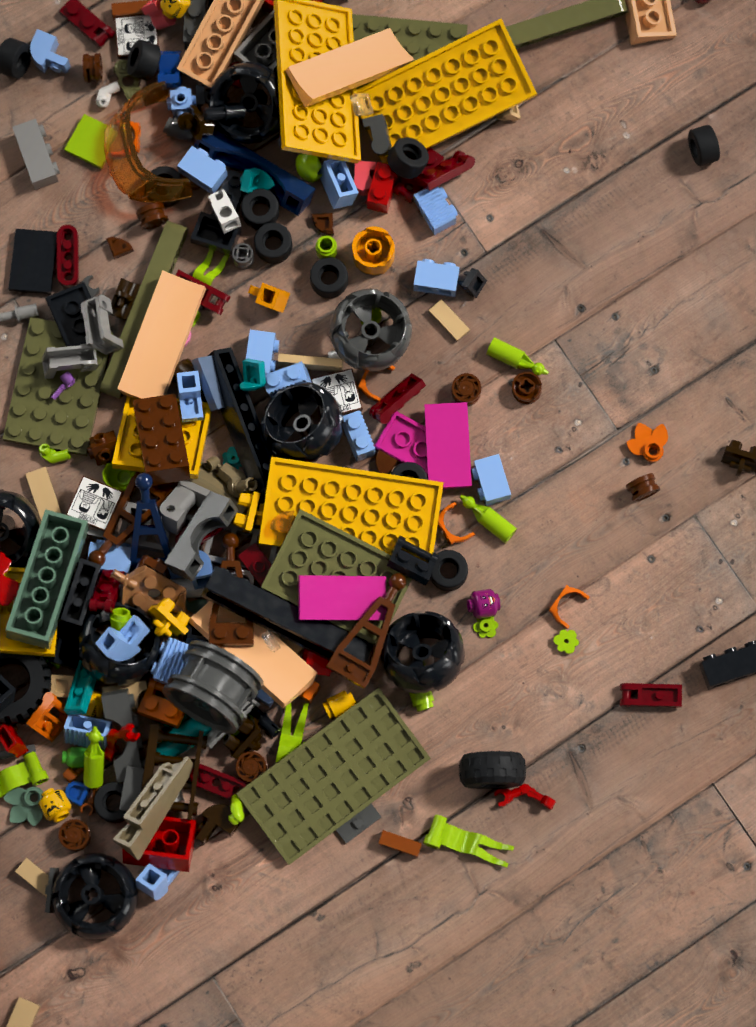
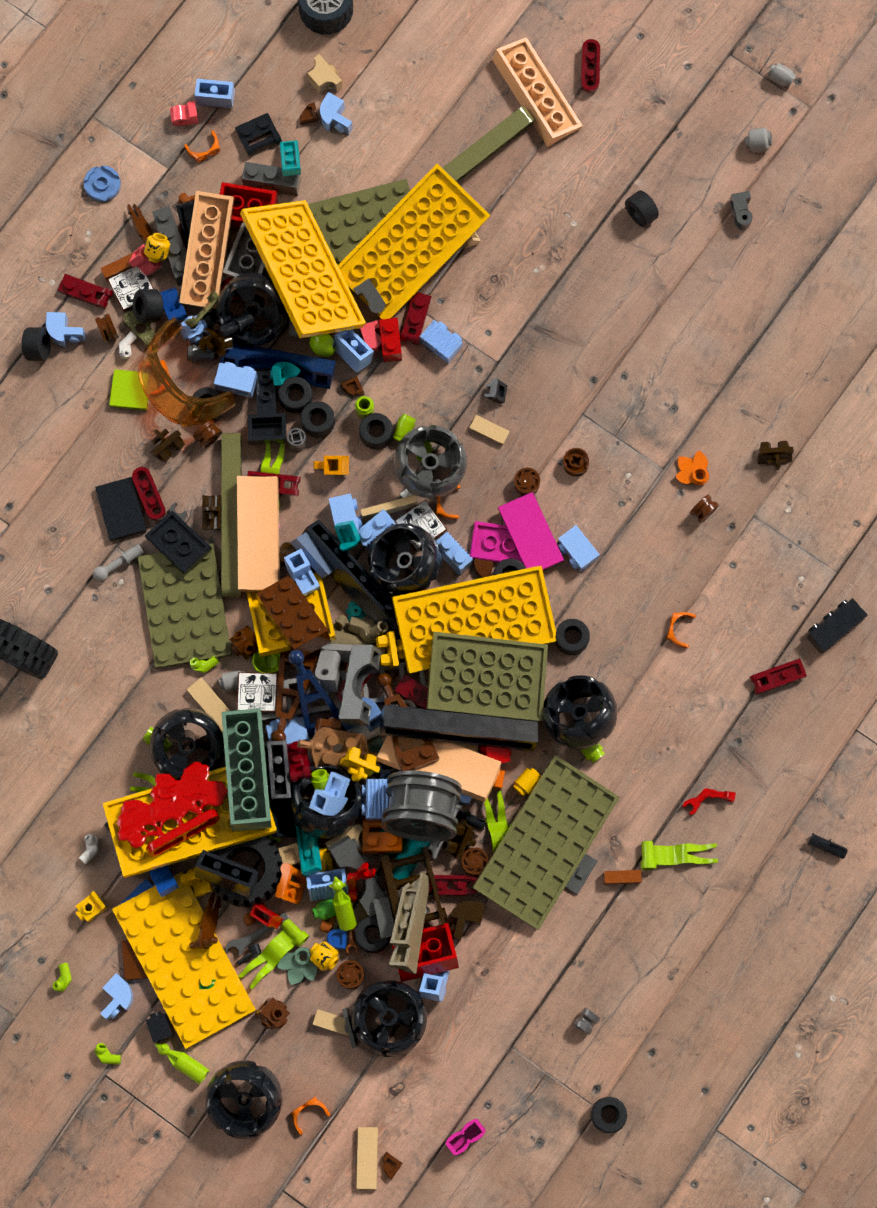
camera: 25 degrees left, 0 degrees up
(36, 153) = (87, 417): light grey brick -> none
(68, 358) = (194, 575): light grey piece -> none
(68, 381) = (192, 597): medium lavender hand -> none
(71, 481) = (229, 681): none -> light grey brick
(97, 325) = (195, 533): light grey piece -> none
(116, 209) = (173, 439): none -> dark brown hips
(119, 247) = (188, 470): reddish brown tile -> none
(180, 93) = (213, 297): none -> olive piece
(224, 211) = (268, 407): white leg -> none
(236, 809) = (481, 904): lime arm -> none
(271, 641) = (453, 750): clear tile -> none
(282, 521) = (423, 647): clear yellow tile -> none
(297, 984) = (583, 1024): none -> flat silver wheel
(339, 597) = (497, 692): dark pink tile -> none
(347, 67) = (325, 249): light nougat arch -> none
(350, 666) = (529, 746): reddish brown plate -> none
(361, 104) = (347, 276): clear tile -> none
(361, 281) = (404, 425): none -> lime cone
(371, 239) = (404, 405): light orange brick -> none
(396, 398) = (472, 510): dark red plate -> none
(408, 158) = (403, 307): black tyre -> none
(409, 564) = (539, 643): black plate -> none
(436, 278) = (465, 398): light blue brick -> none
(446, 170) = (438, 306): dark red plate -> none
(450, 537) = (562, 609): orange cap -> none
(483, 603) = (612, 653): magenta head -> none
(486, 631) = (620, 676): lime plant -> none
(490, 519) = (589, 581): lime wheel -> none
(492, 770) = (675, 786): black tyre -> none
(513, 357) = (555, 440): lime wheel -> none
(570, 636) = (692, 653): lime plant -> none
(631, 895) = (828, 846): none -> black axle

